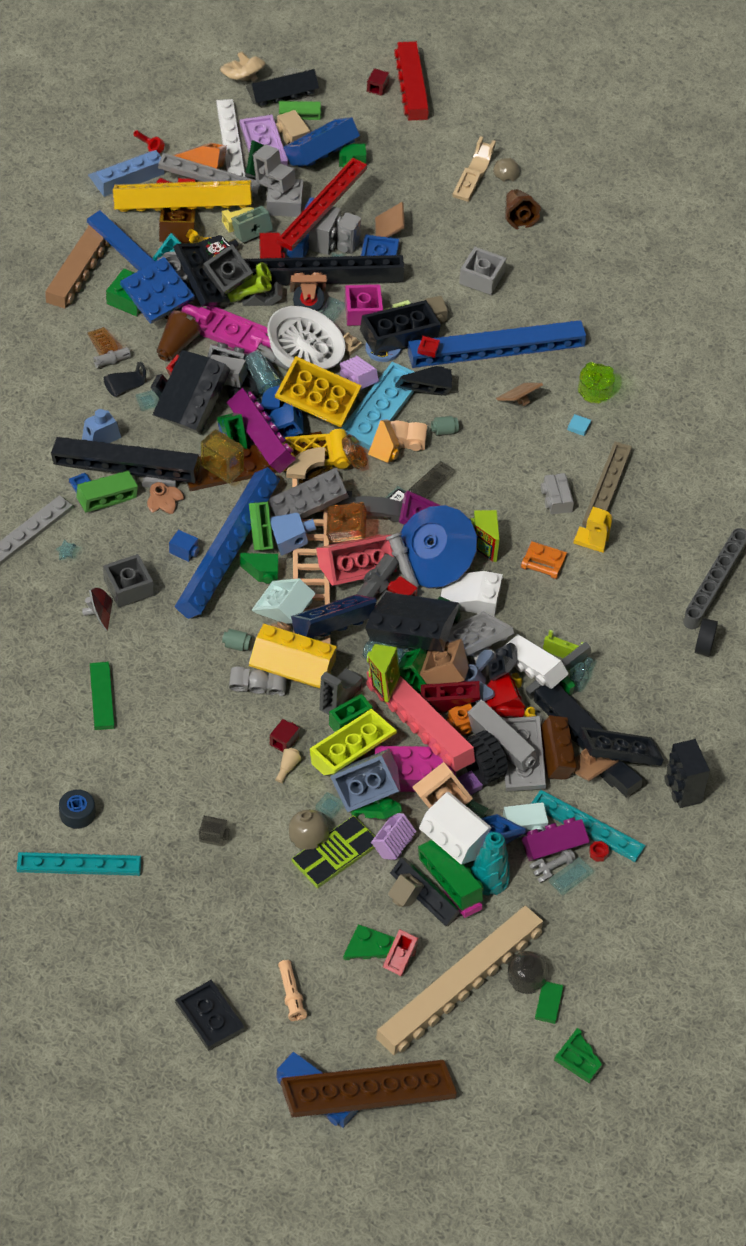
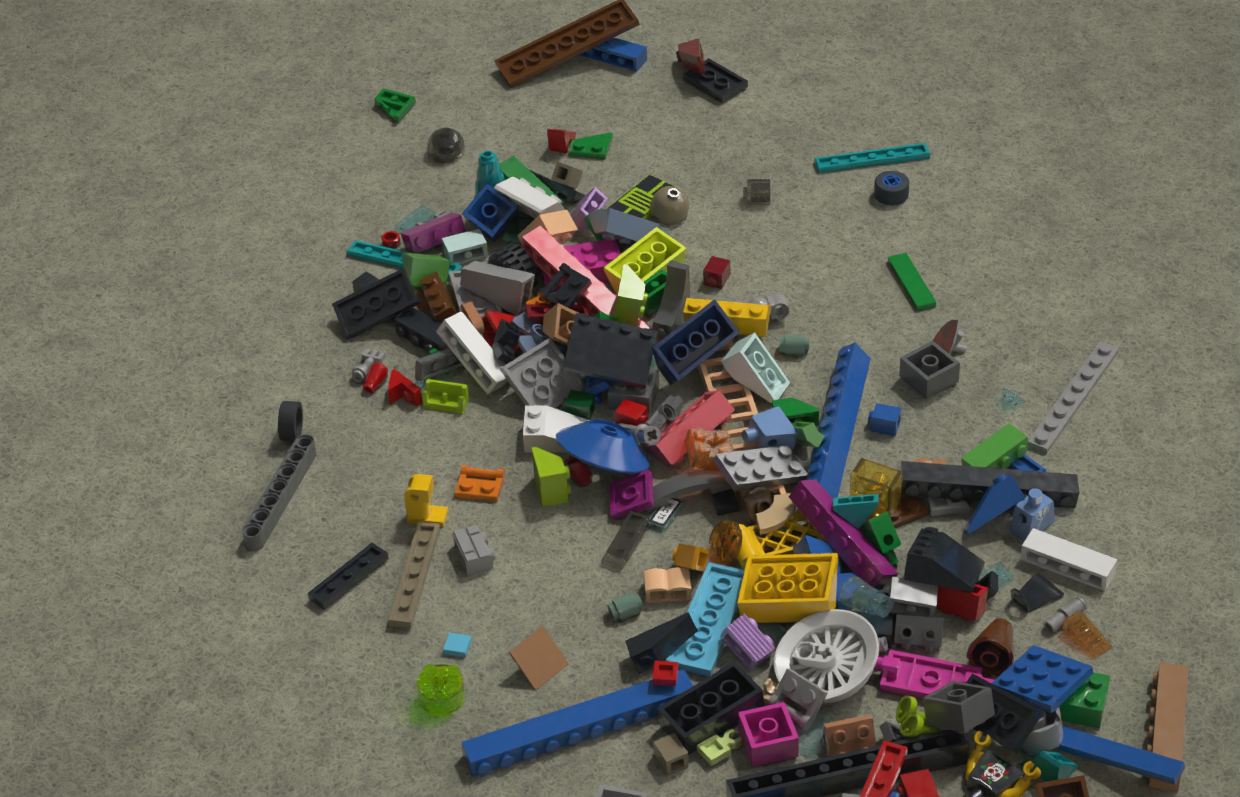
camera: 175 degrees right, 10 degrees down
(87, 393) = (1068, 559): none -> white brick
(131, 435) = (996, 500): none -> blue slope
(228, 1041) = (691, 55): none -> slope
(247, 435) = (856, 508): none -> teal slope
(289, 761) = (703, 257): tan cone -> none
(293, 998) = (647, 100): light nougat pin -> none
(336, 319) = (803, 693): none -> light grey plate
(440, 693) = (570, 291): none -> black plate
(459, 981) = (504, 131): tan brick -> none
(531, 702) = (472, 315): none -> nougat beam
(549, 1002) = (422, 134): green tile -> none
(569, 786) = (421, 265): none -> bright green slope
(601, 663) = (401, 386): none -> red slope
(625, 684) = (375, 377): none -> red cone
(639, 690) = (360, 372): none -> light grey hinge
(661, 494) = (348, 576): none -> black plate
(687, 773) = (307, 283): black brick -> none

